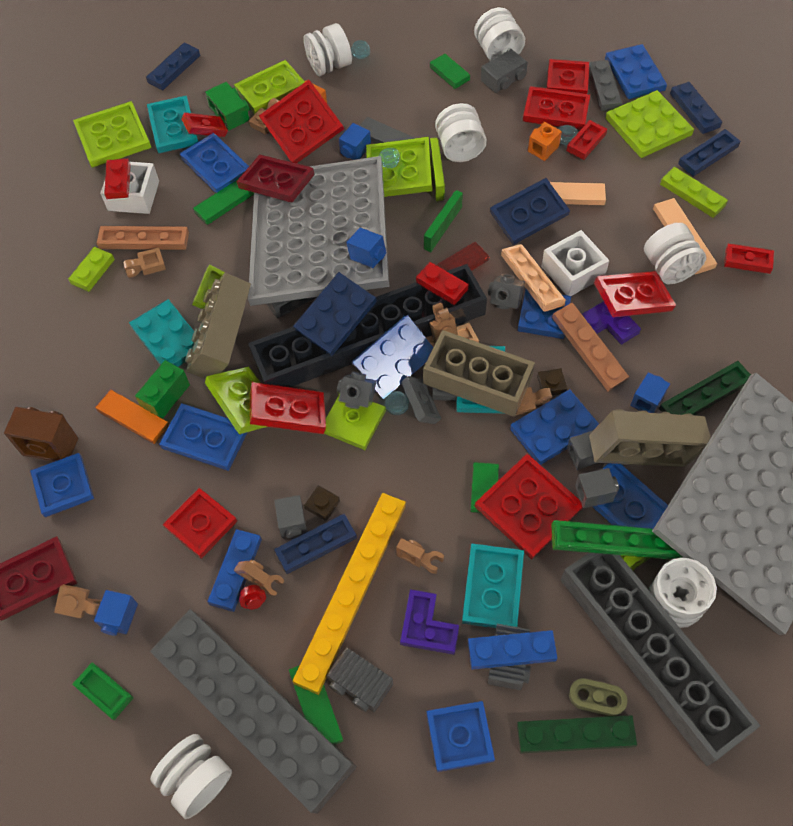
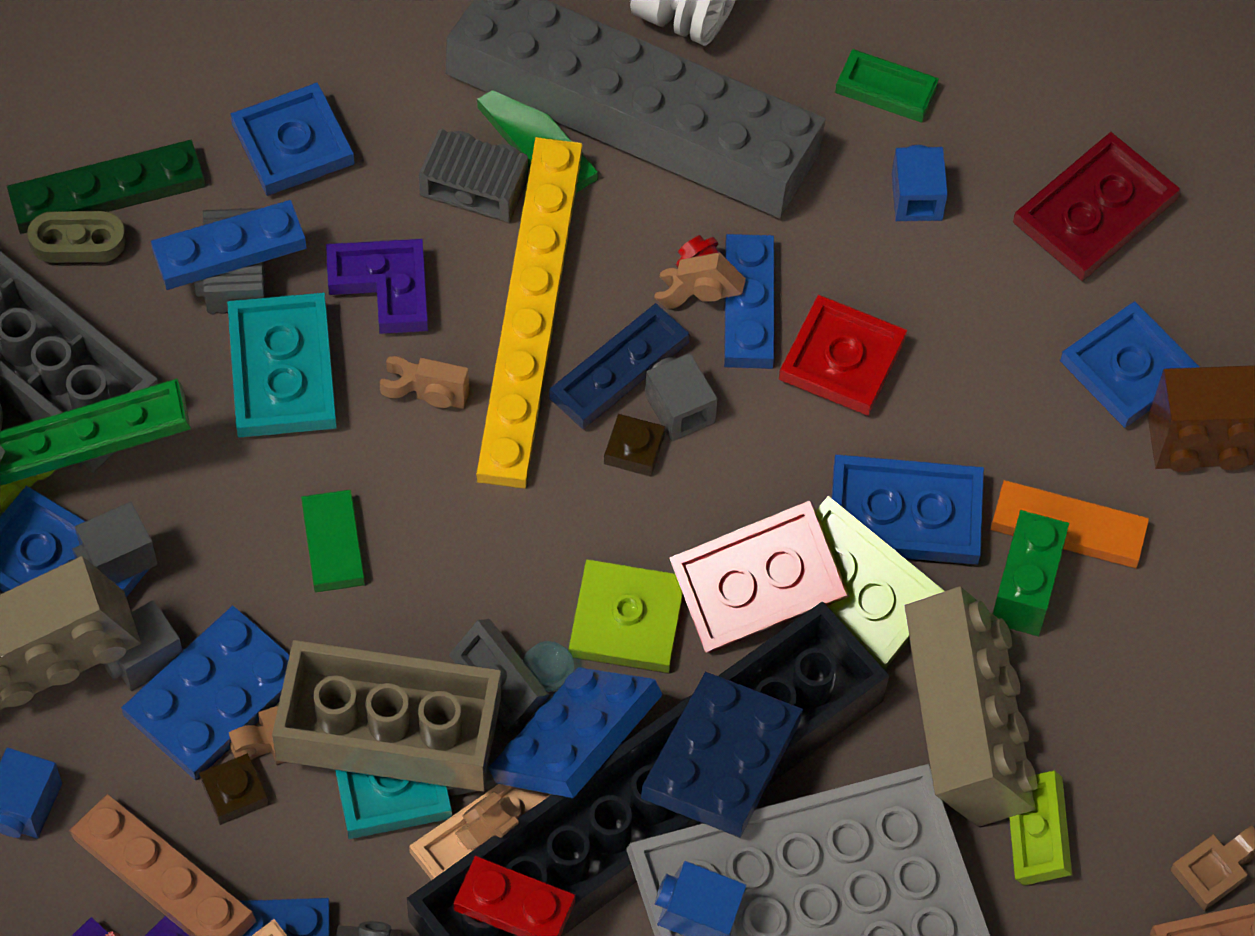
camera: 160 degrees right, 0 degrees up
(75, 602) = (993, 185): medium nougat plate -> none
(164, 333) = (1090, 711): teal plate -> none
(364, 386) = (630, 636): dark grey brick -> none
(527, 504) = (241, 513): red plate -> none

